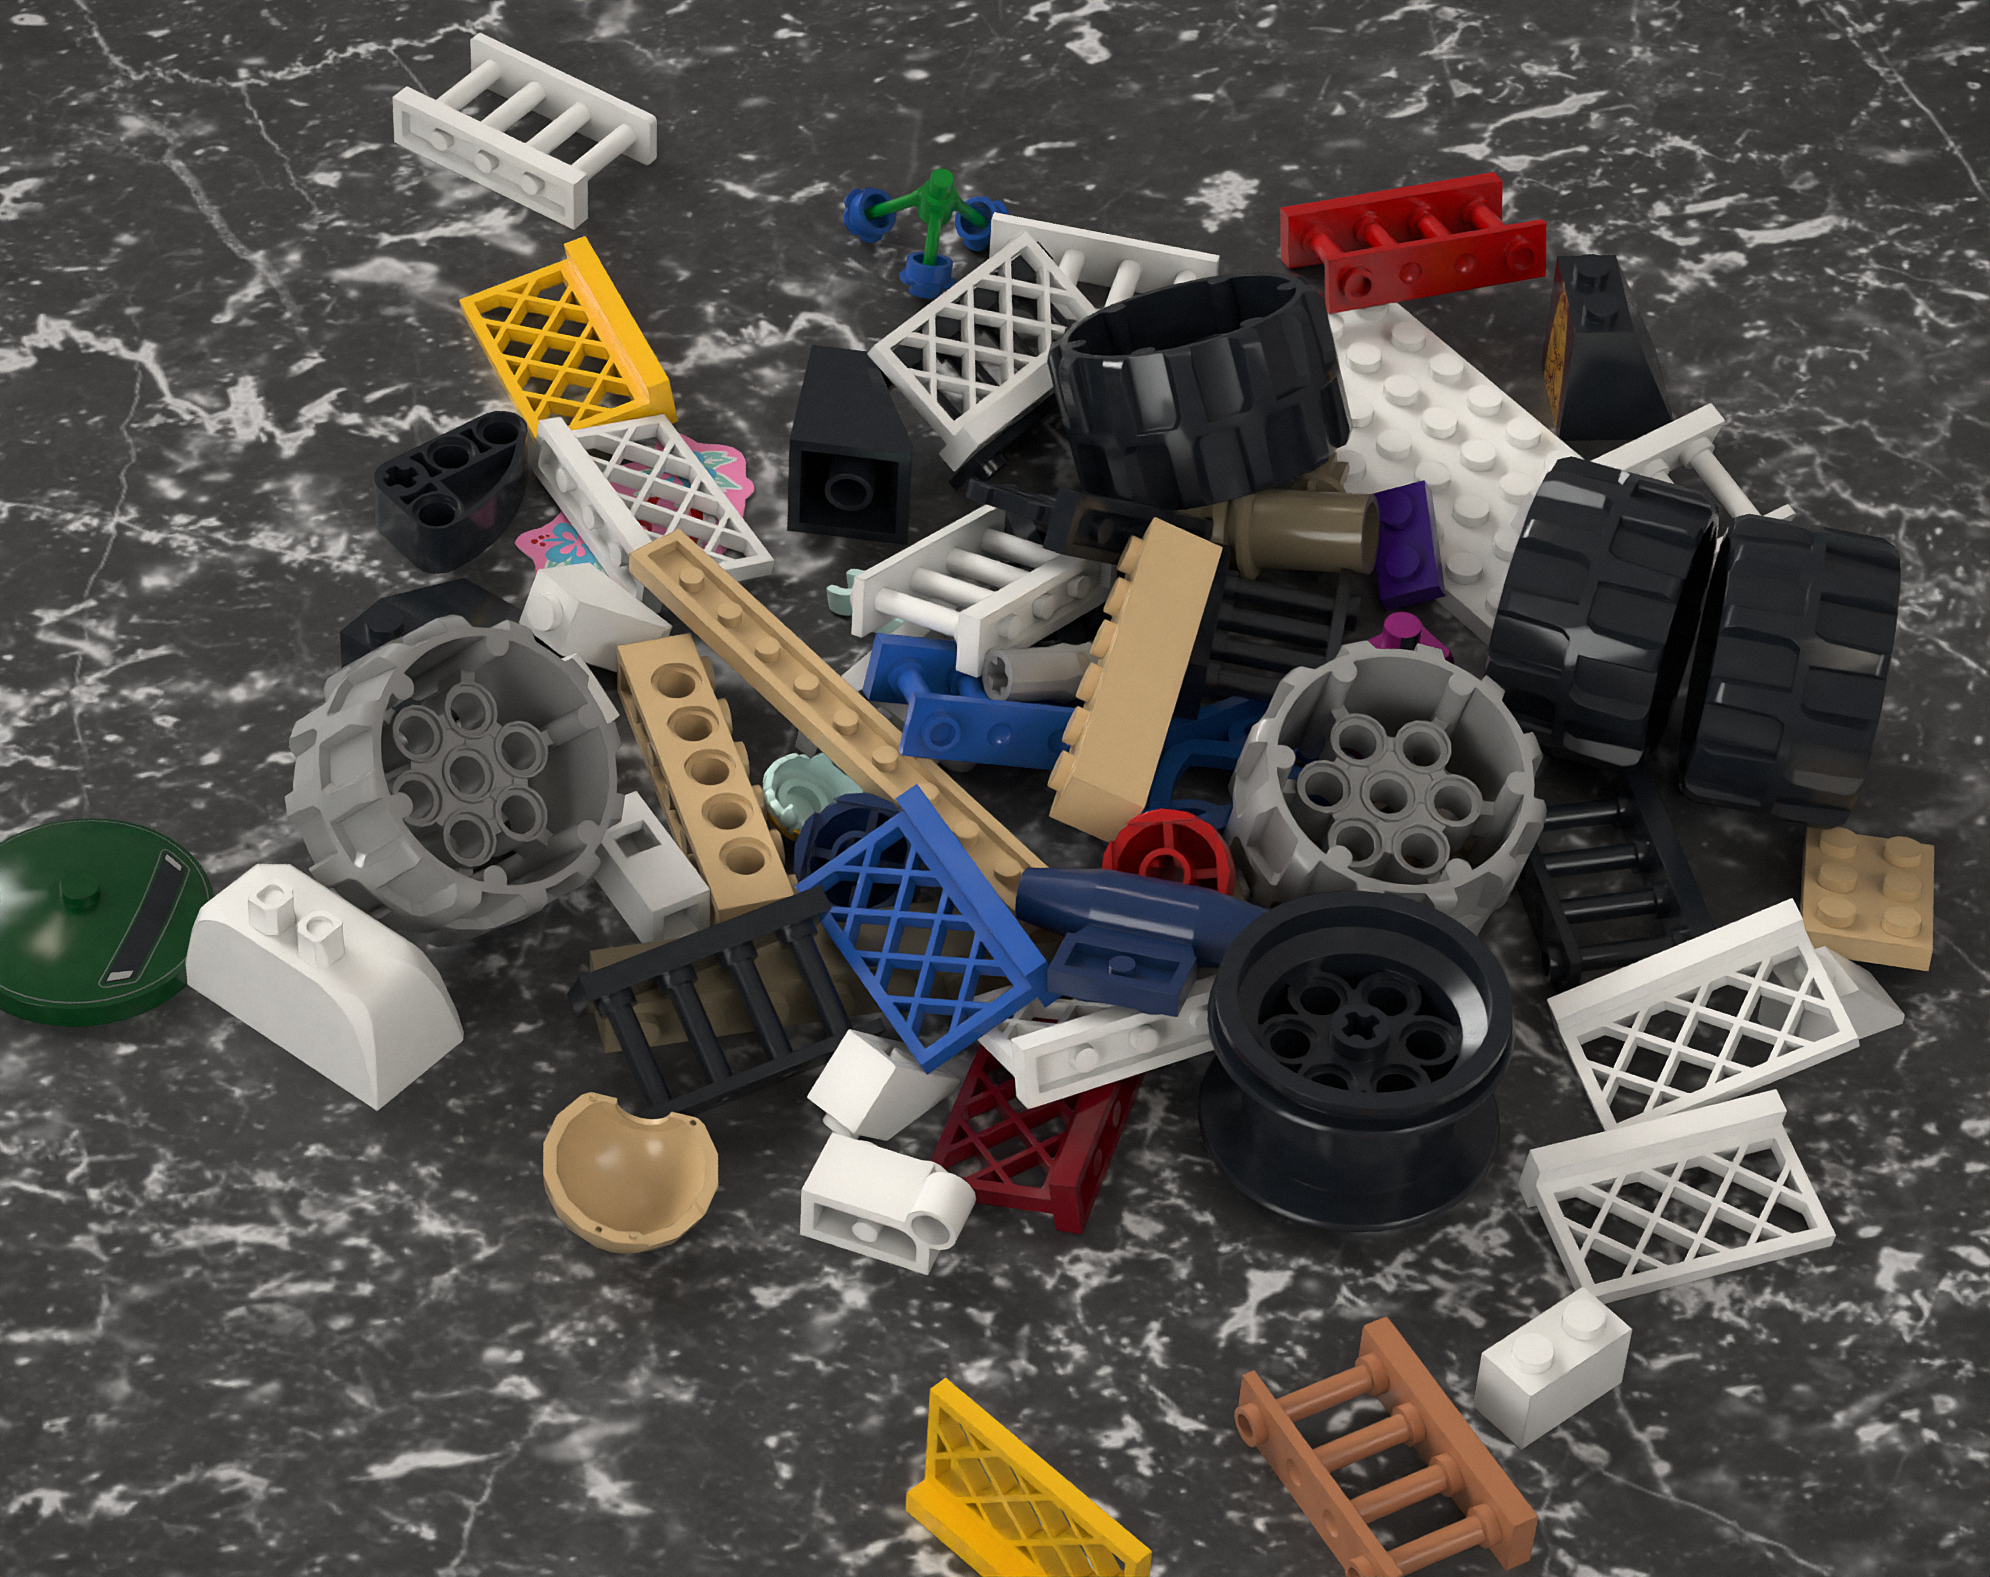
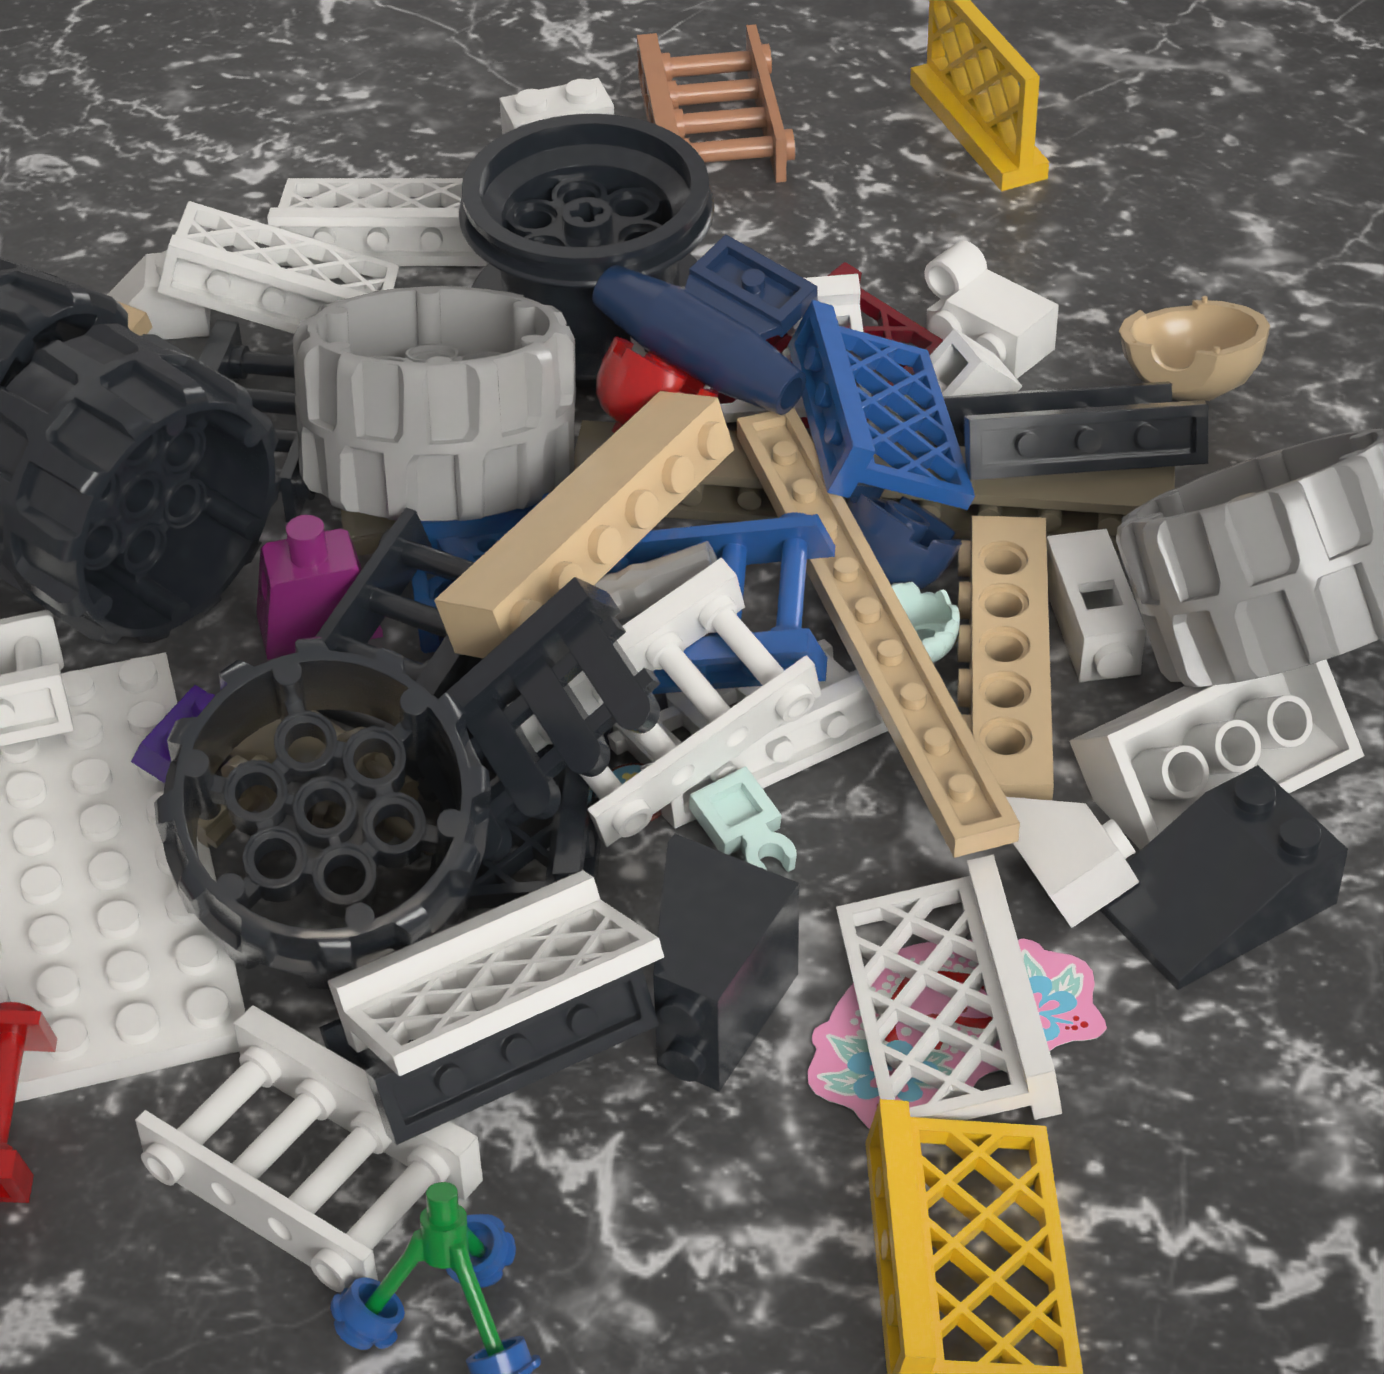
camera: 155 degrees left, 0 degrees up
(454, 492) = (1166, 1065): black beam -> none

